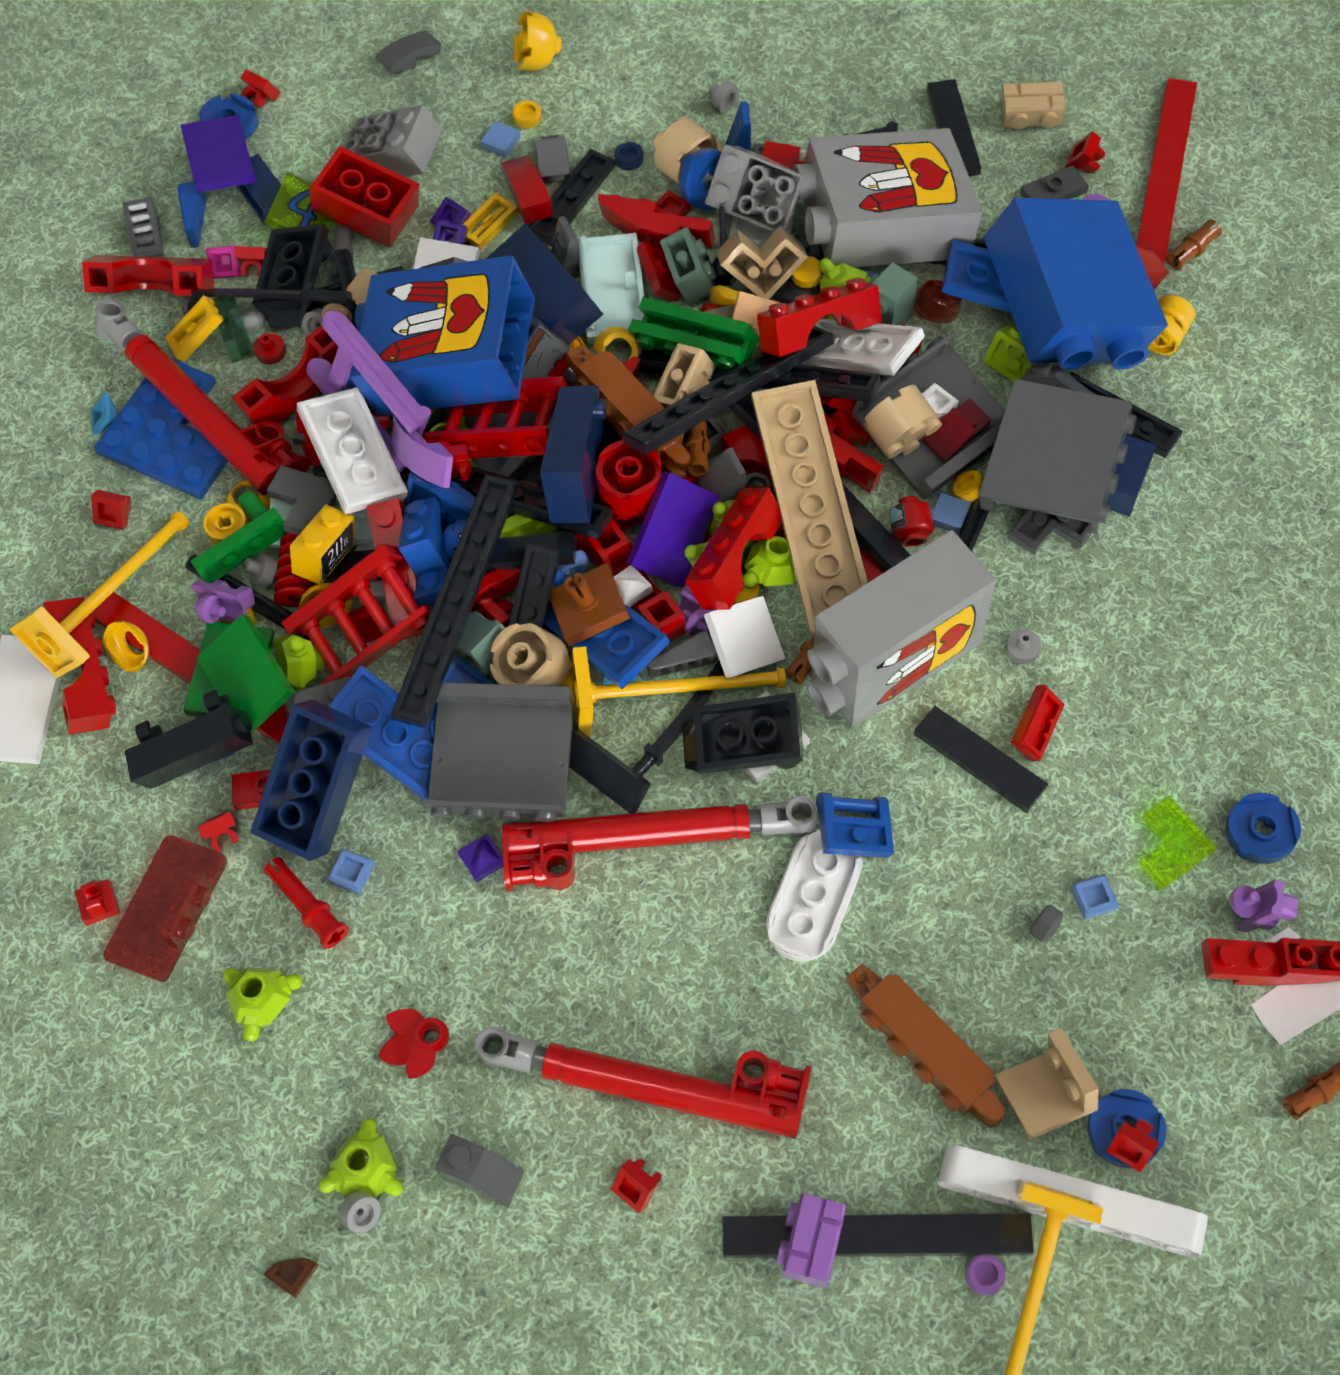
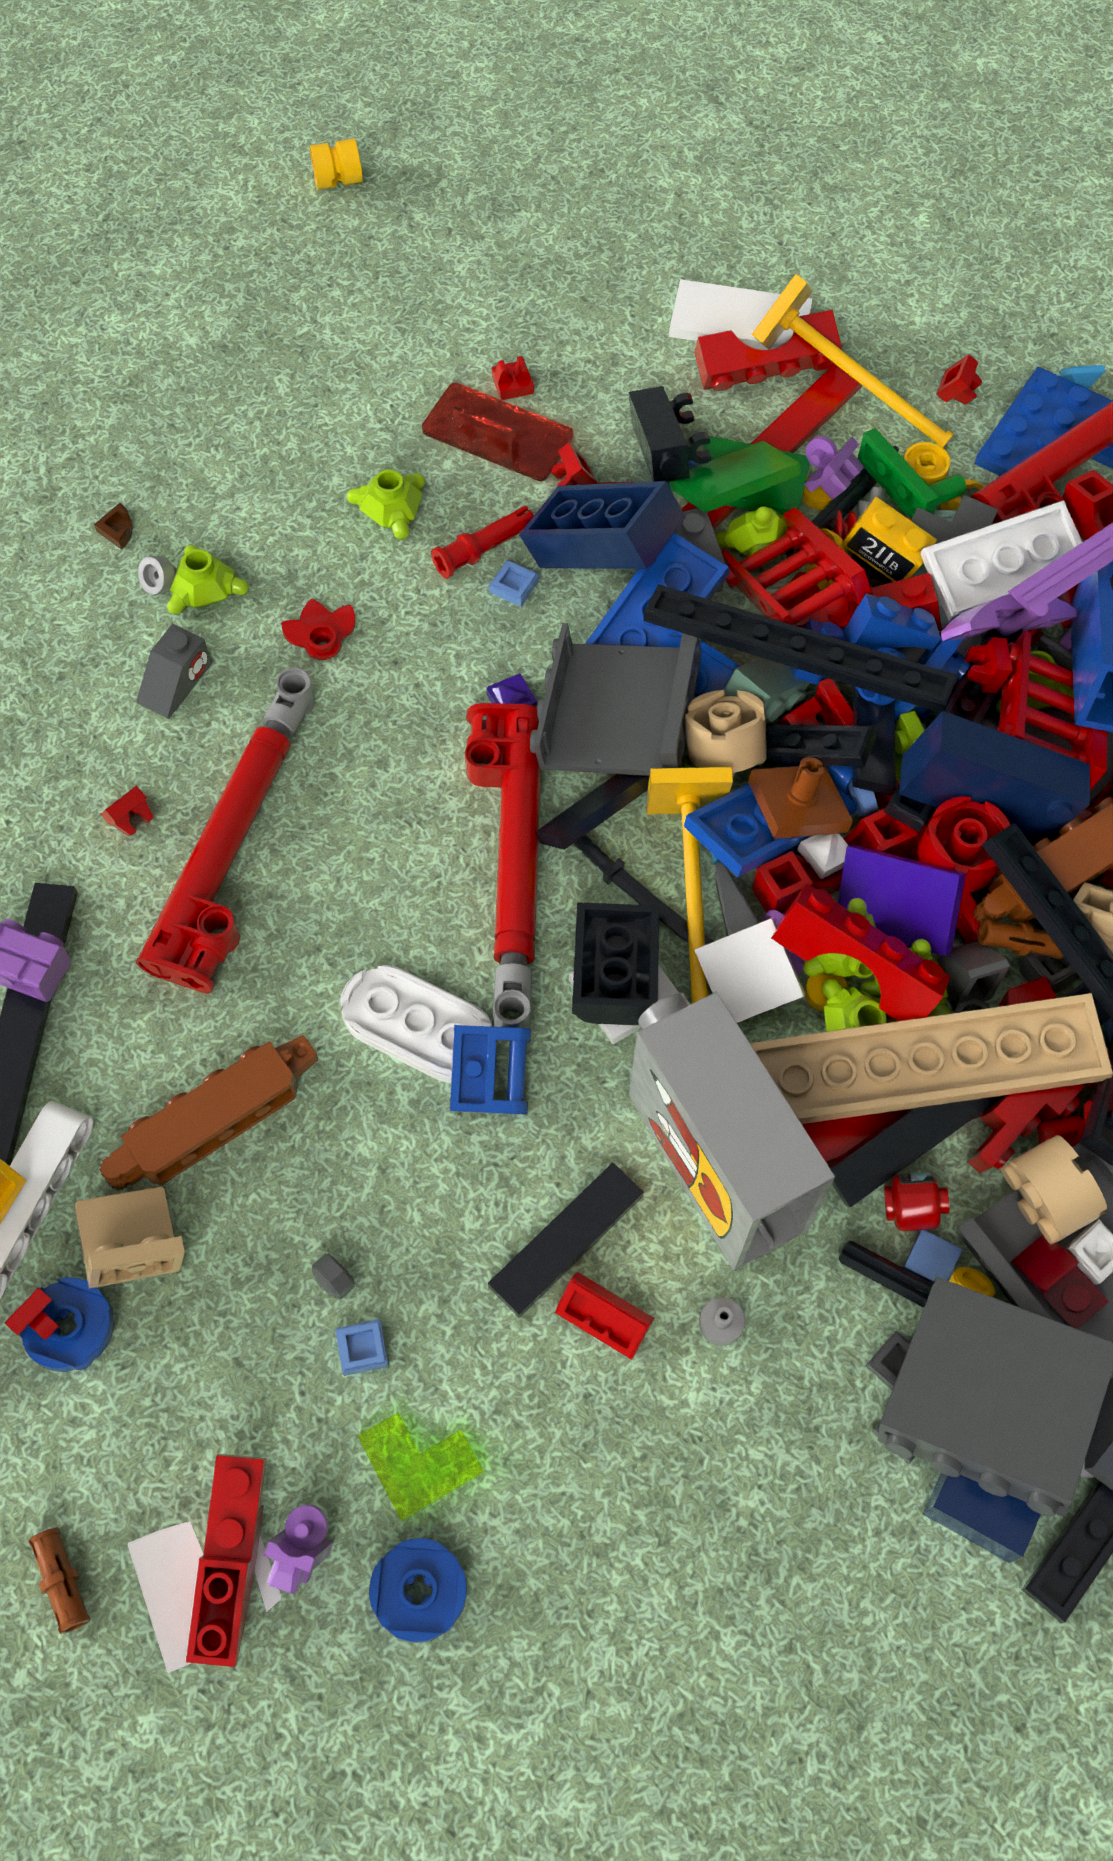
camera: 90 degrees right, 0 degrees up
(118, 649) = (792, 391): yellow piece -> none

